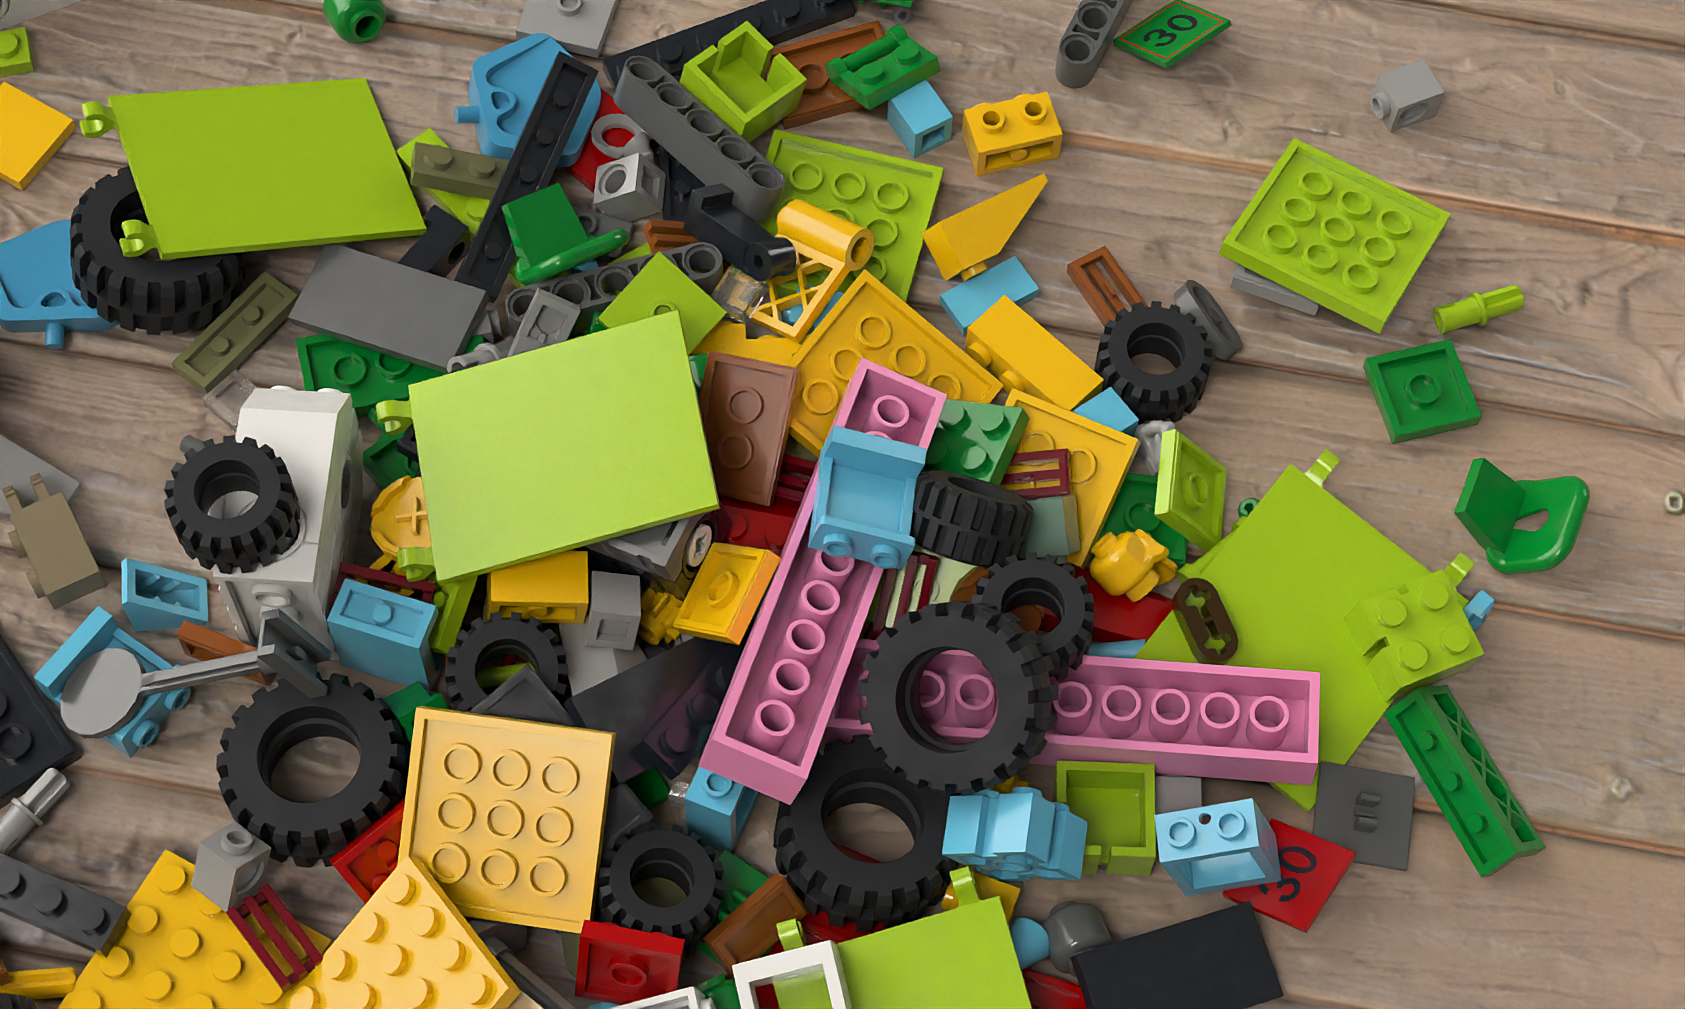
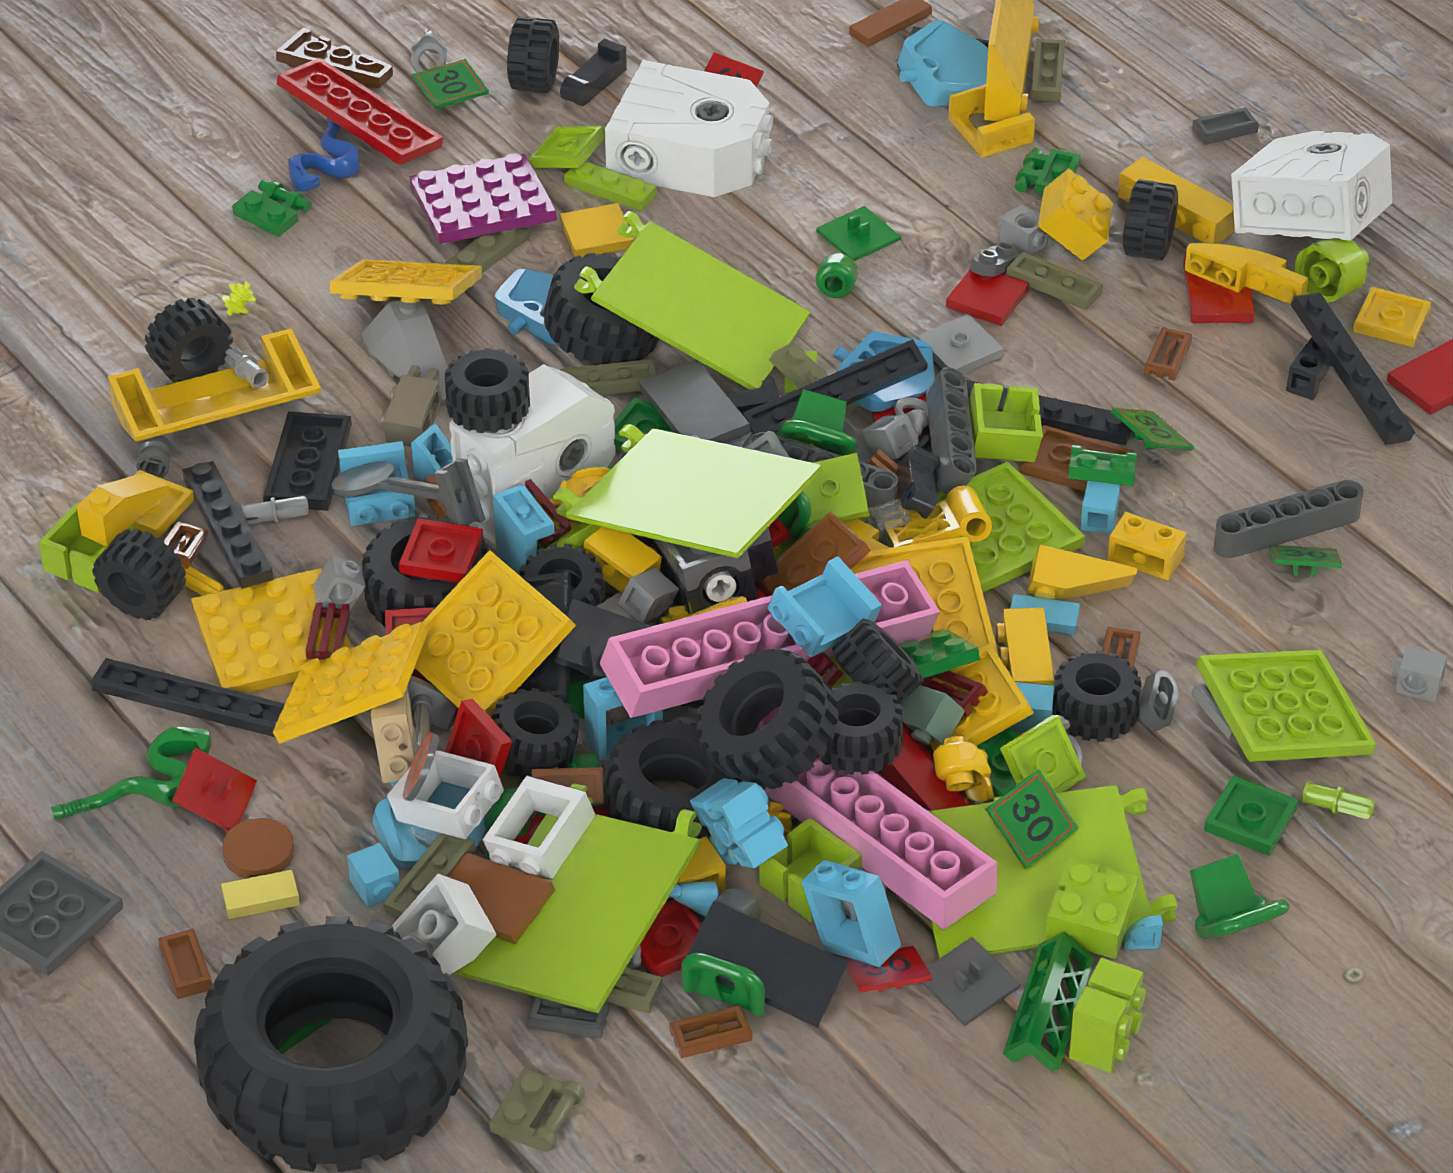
camera: 45 degrees right, 20 degrees down
(332, 739) = (441, 550): none -> red plate
(1214, 618) = (967, 818): dark brown beam -> none
(1266, 577) = (1031, 818): none -> green piece
(1553, 755) = (1107, 1015): none -> lime piece

